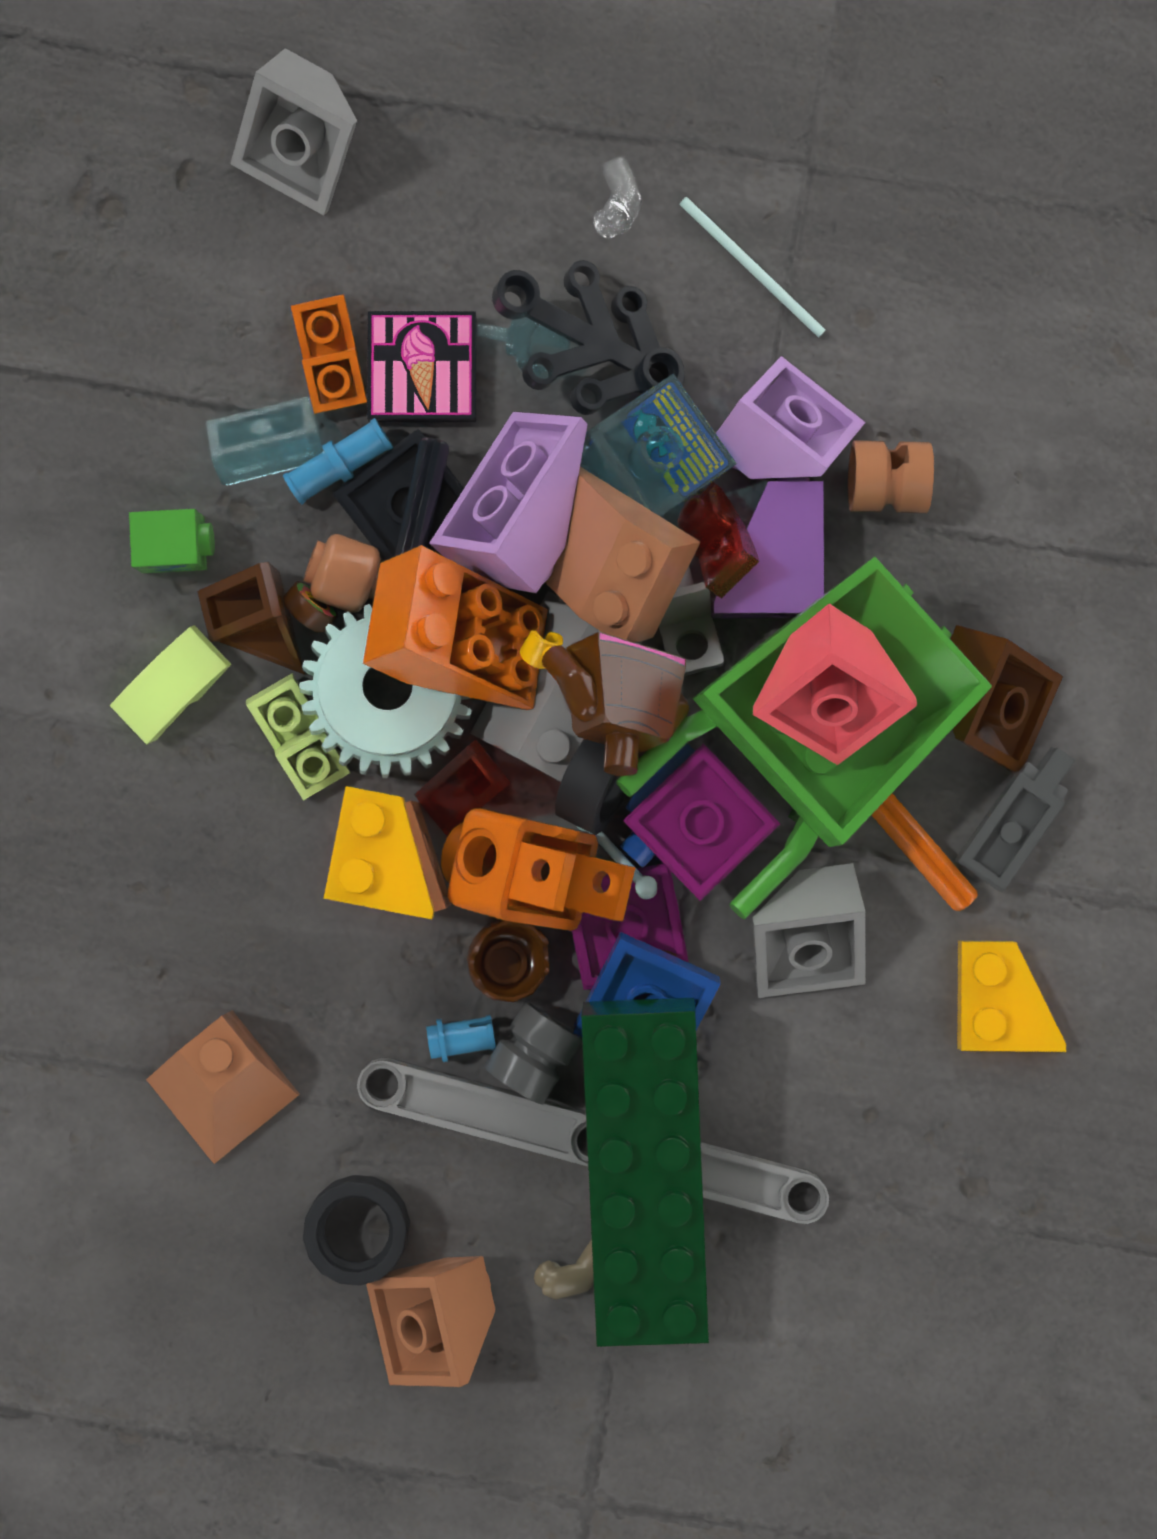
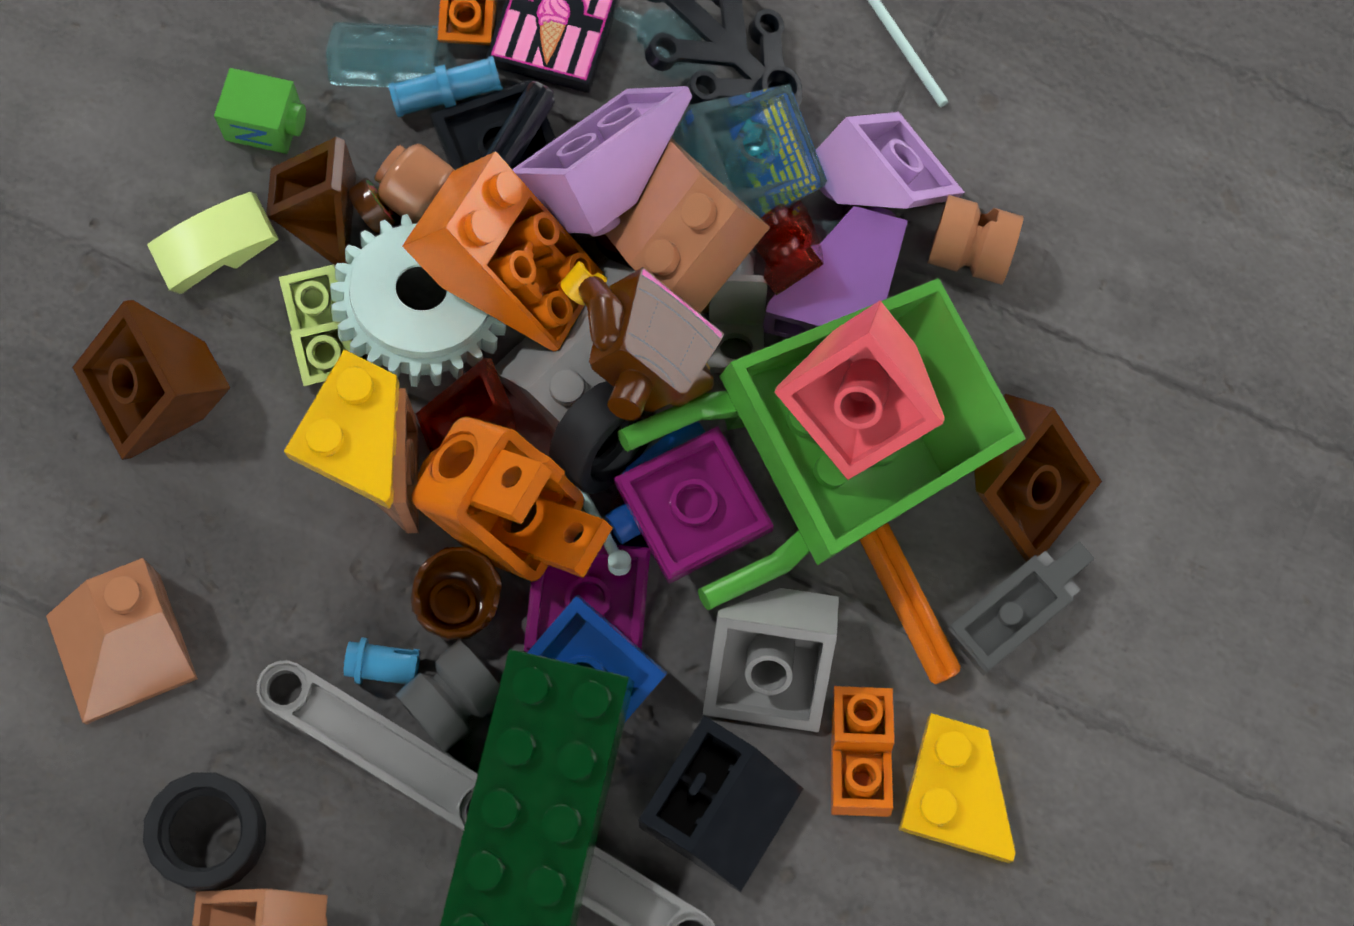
camera: 10 degrees right, 15 degrees down
(160, 839) = (148, 378): none -> reddish brown slope
(797, 1080) = (720, 804): none -> black slope
(908, 991) = (862, 751): none -> orange slope

